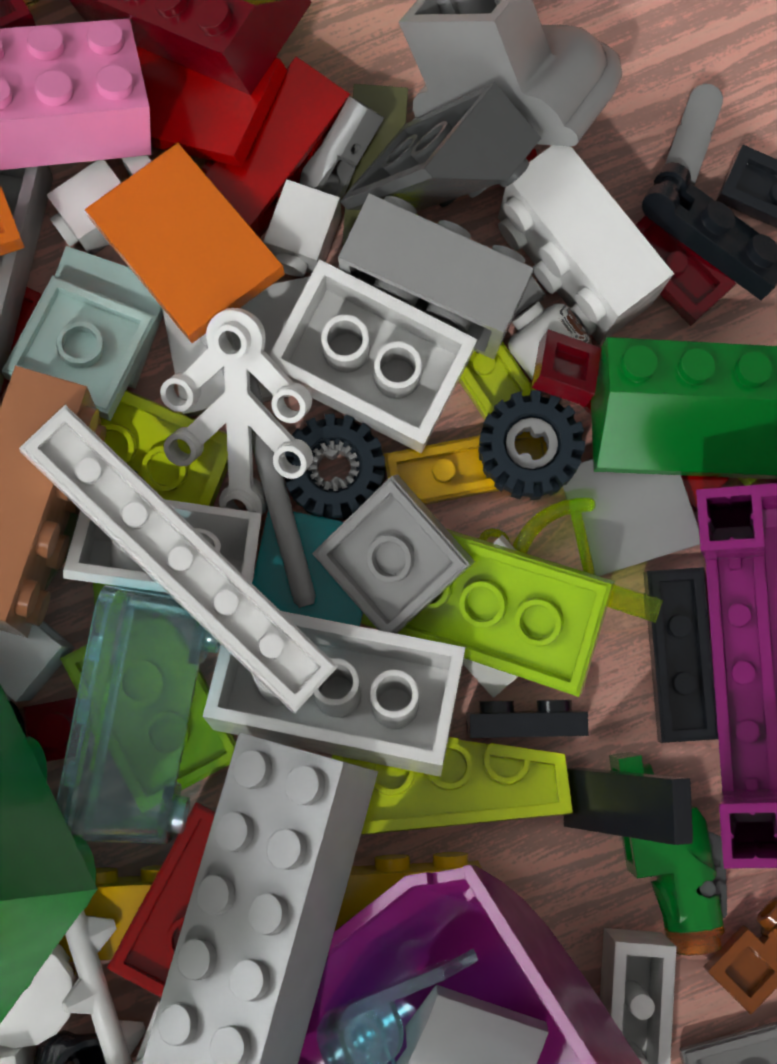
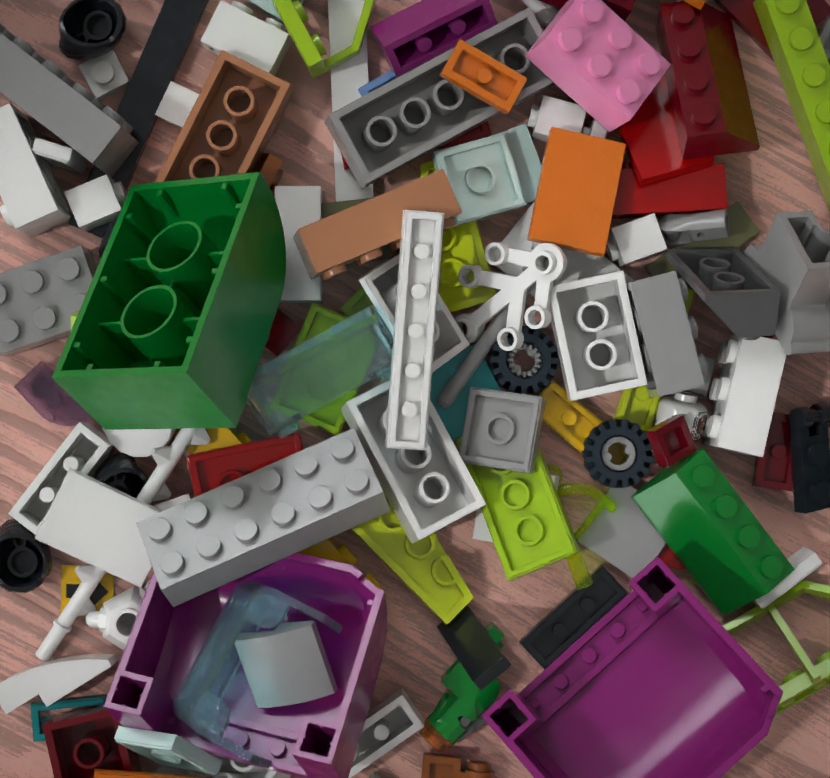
camera: 50 degrees right, 5 degrees up
(550, 720) = (485, 576): black plate -> none

